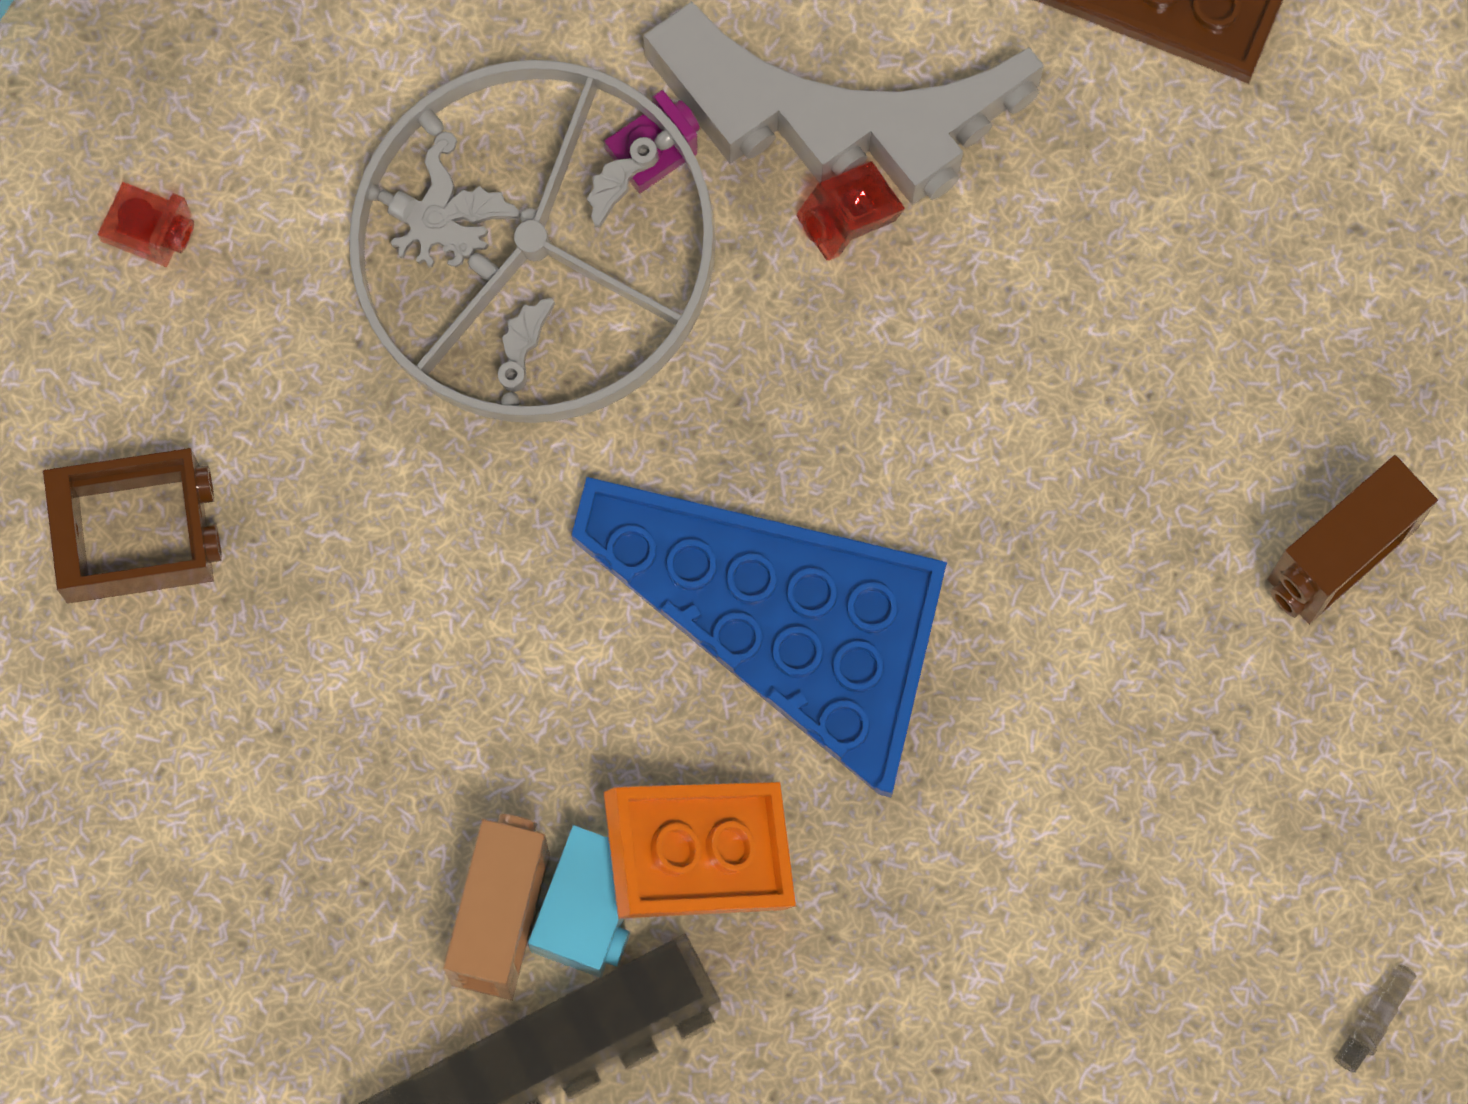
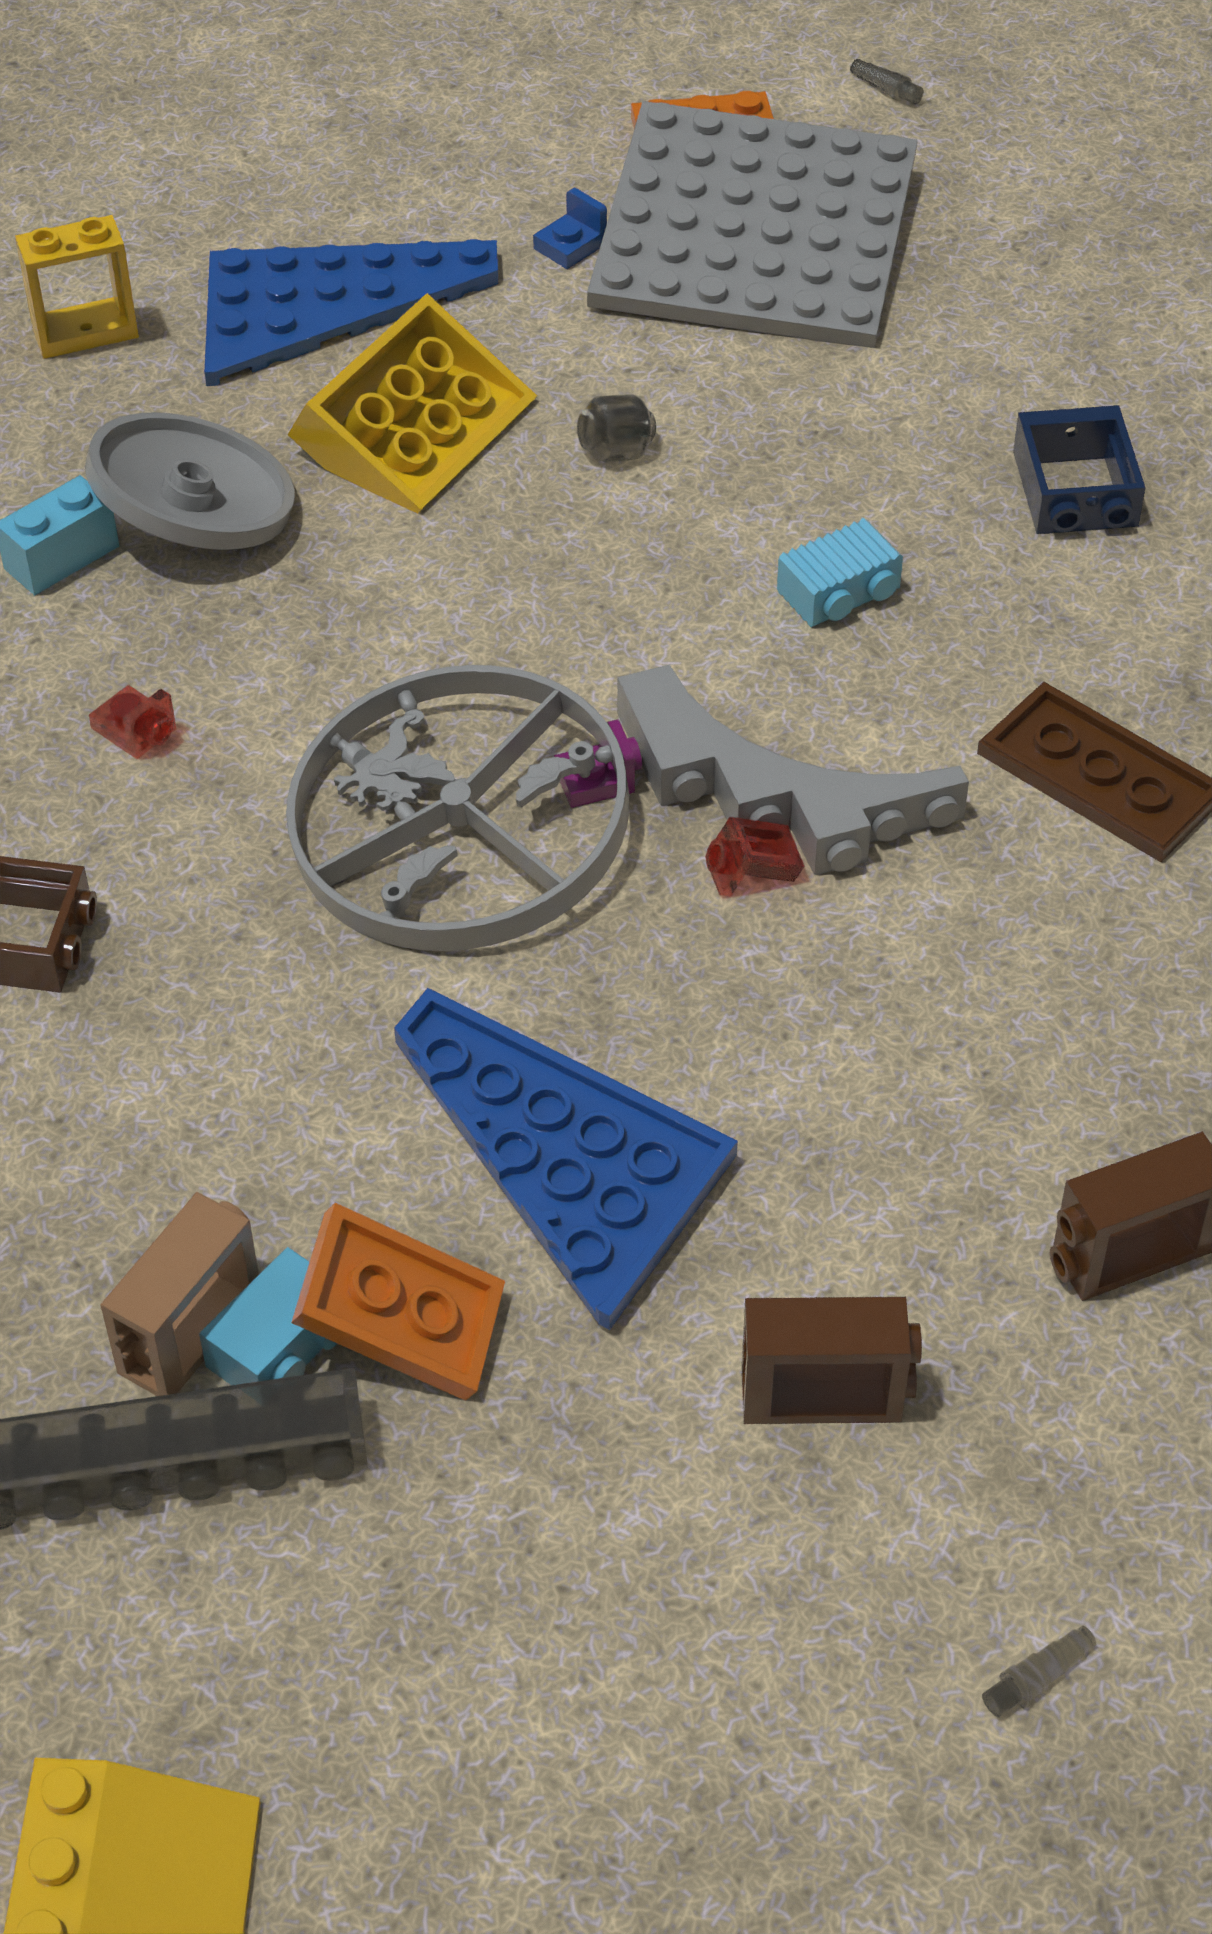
camera: 20 degrees right, 25 degrees down
(1111, 787) = (828, 1360): none -> reddish brown window

